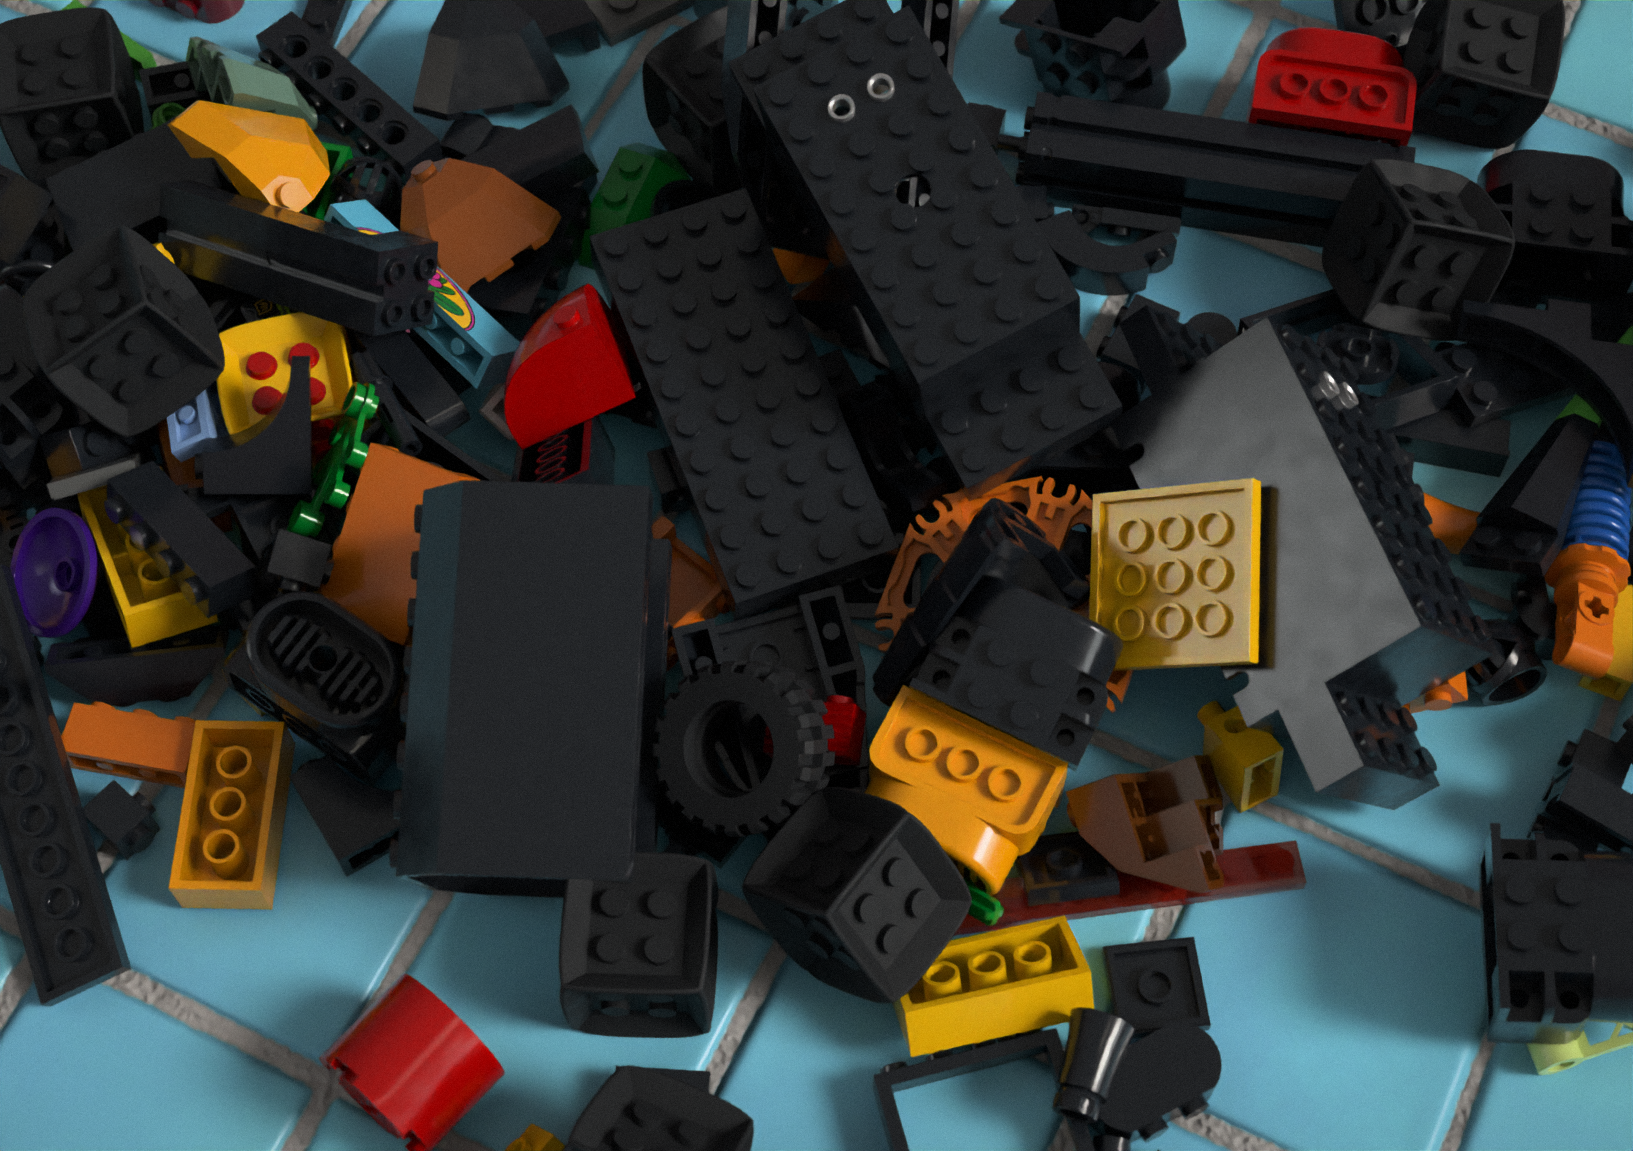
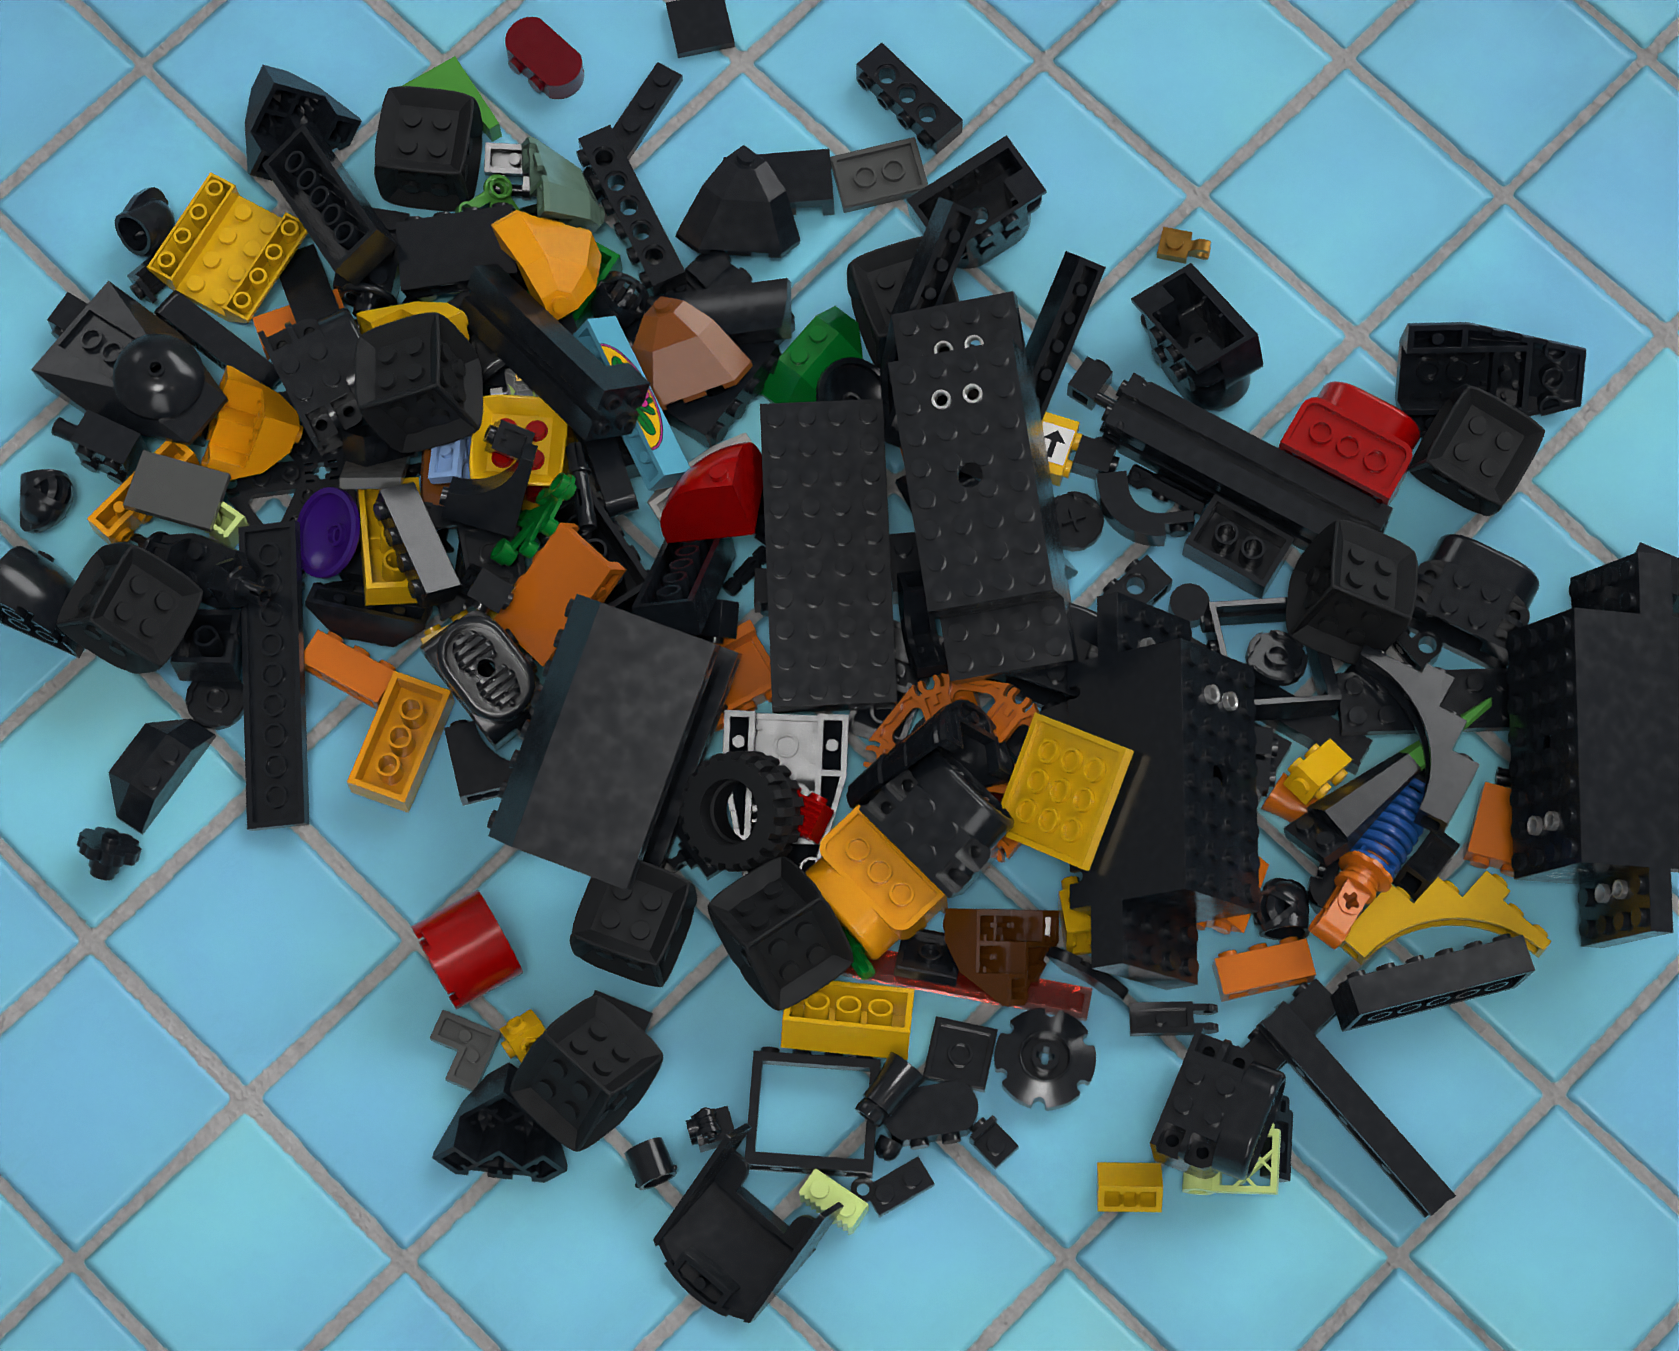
camera: 20 degrees right, 10 degrees up
(122, 819) = (329, 720): black brick -> none
(264, 370) = (507, 439): none -> black bracket
(637, 461) = (745, 571): none -> black axle
(1241, 254) = (1238, 546): none -> black brick
(1251, 1094) = (992, 1141): none -> black bracket
(1260, 984) = (1069, 1061): none -> black piece
(1264, 816) = (1083, 970): none -> black tile
(1414, 846) = (1169, 1018): none -> black hinge
(1466, 1092) = (1129, 1187): none -> yellow brick
(1467, 474) = (1314, 774): none -> yellow brick
(1506, 742) = (1263, 968): none -> orange brick

